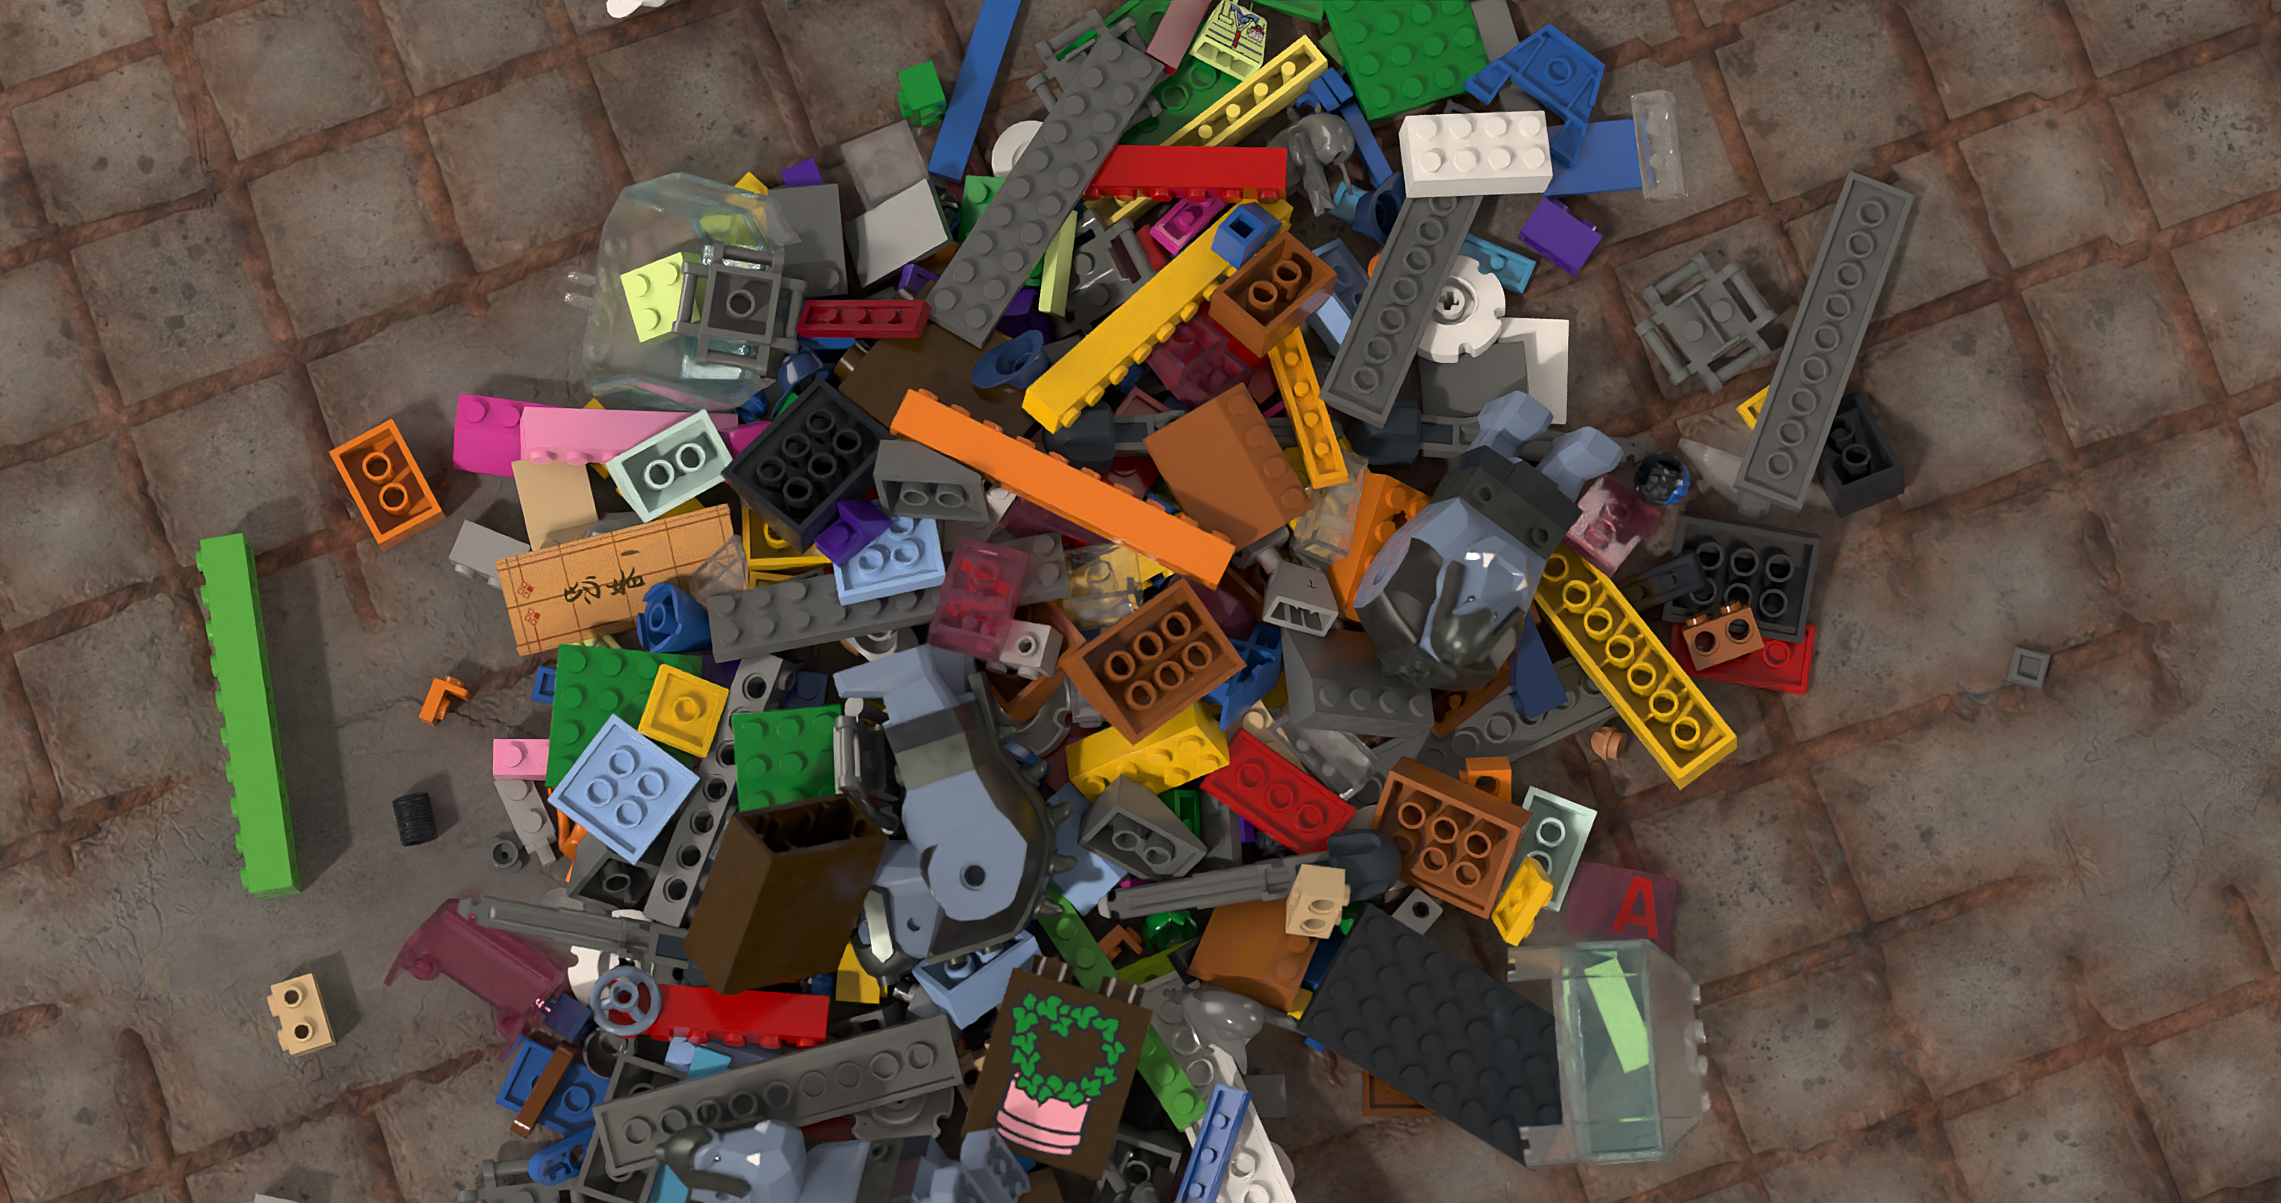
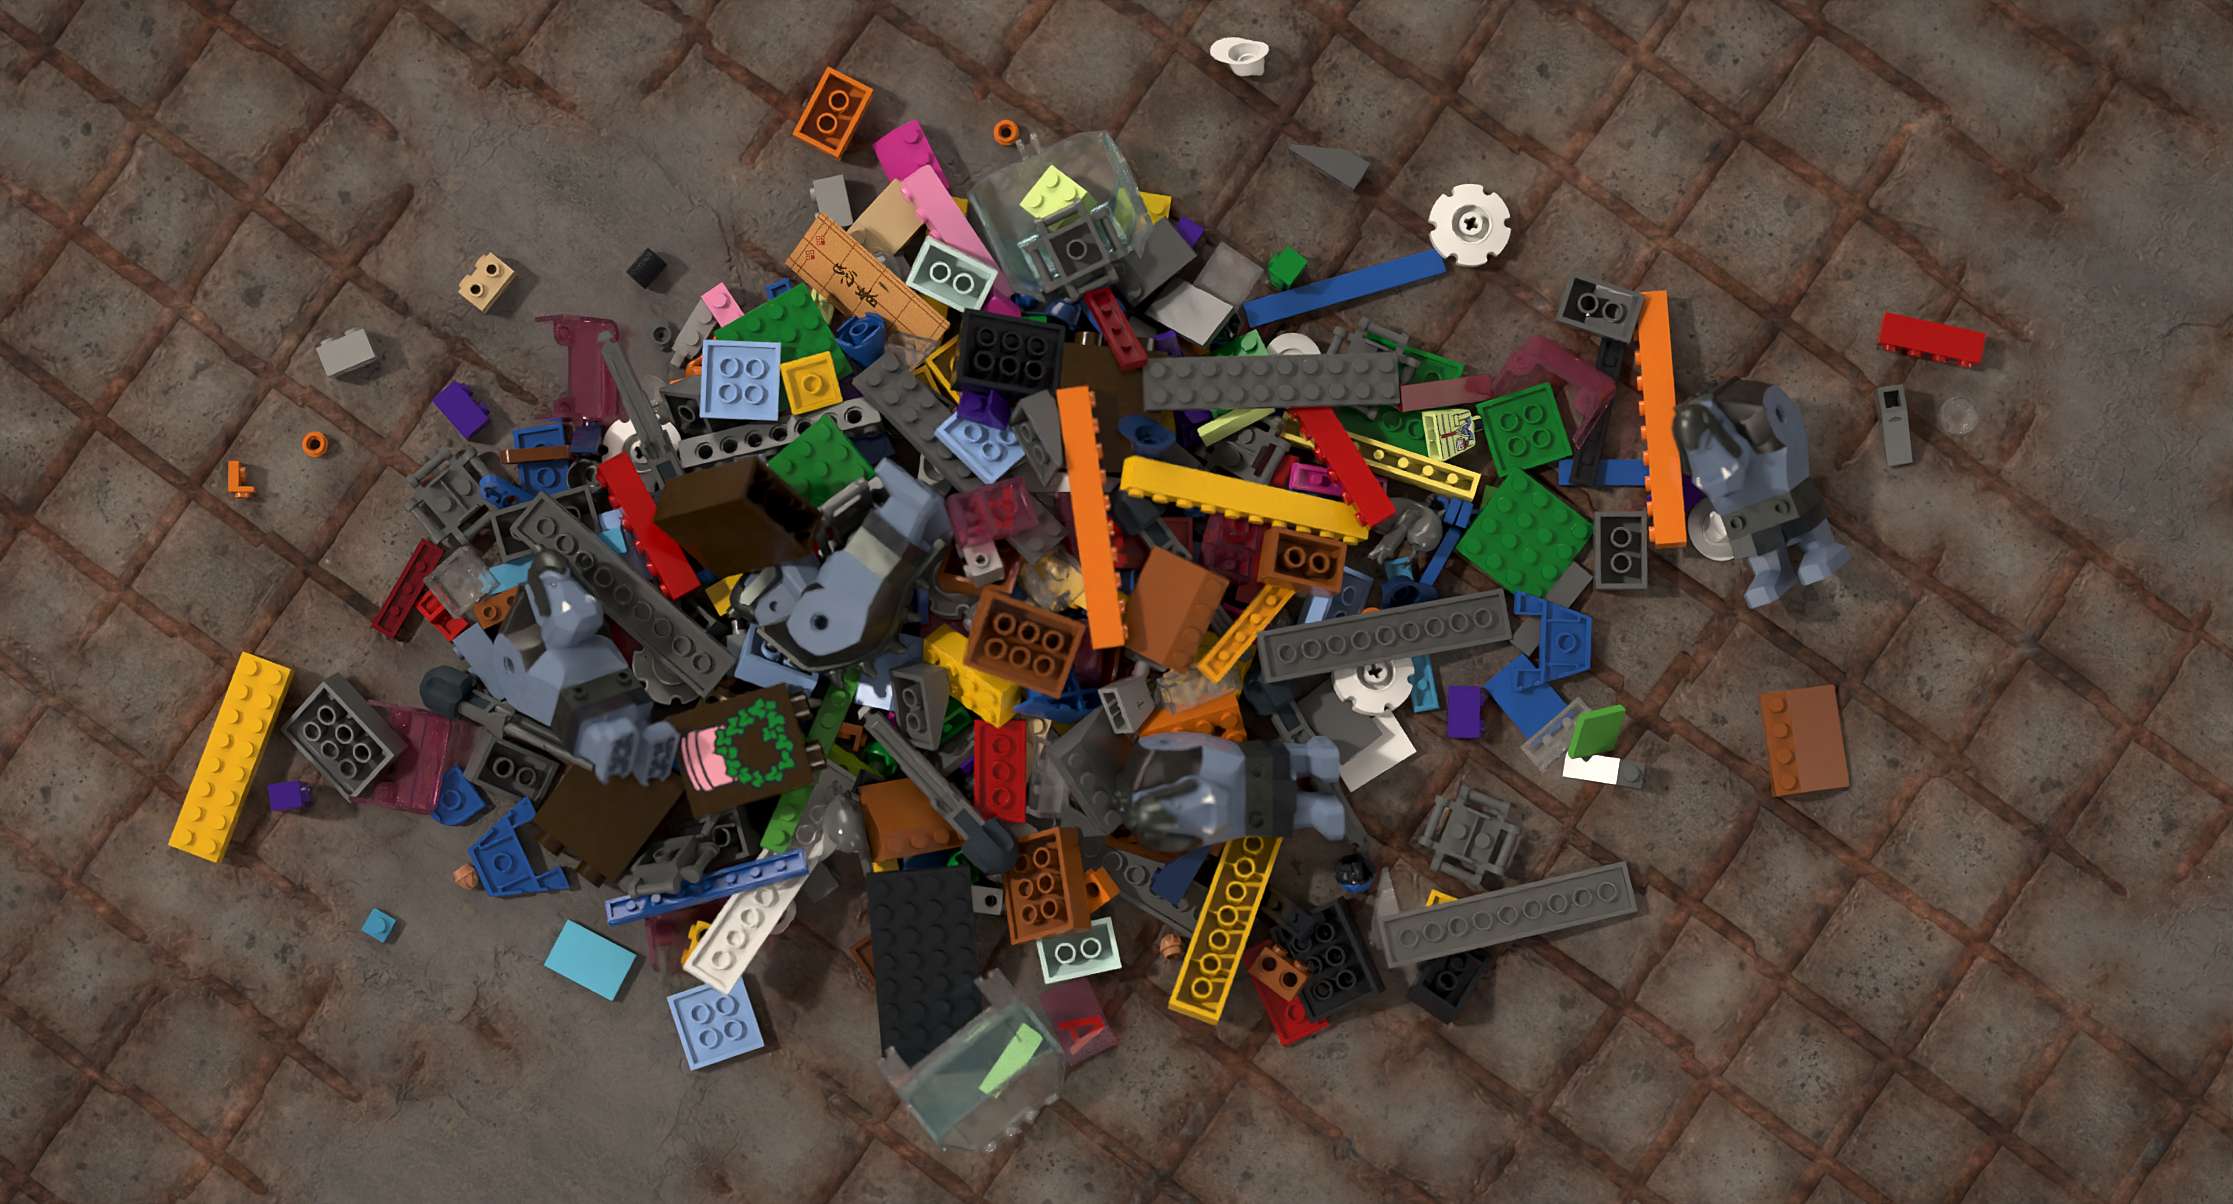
camera: 65 degrees right, 5 degrees up
(249, 716) = (640, 129): bright green brick -> none
(430, 1144) = (462, 410): none -> dark purple brick
(436, 704) = (724, 233): orange bracket -> none
(538, 299) = (1006, 124): none -> orange plate
(621, 988) = (626, 464): sand blue piece -> none
(1244, 233) = (1327, 521): blue slope -> none
(1316, 901) = (948, 835): tan brick -> none
(1475, 154) = (1476, 627): white brick -> none
(1522, 900) = (1033, 957): yellow plate -> none
(1610, 524) = (1303, 859): clear pink tile -> none
(1683, 102) = (1596, 731): none -> bright green tile
(1730, 125) = (1605, 770): none -> slope
(2027, 668) = (1390, 1170): dark grey tile -> none

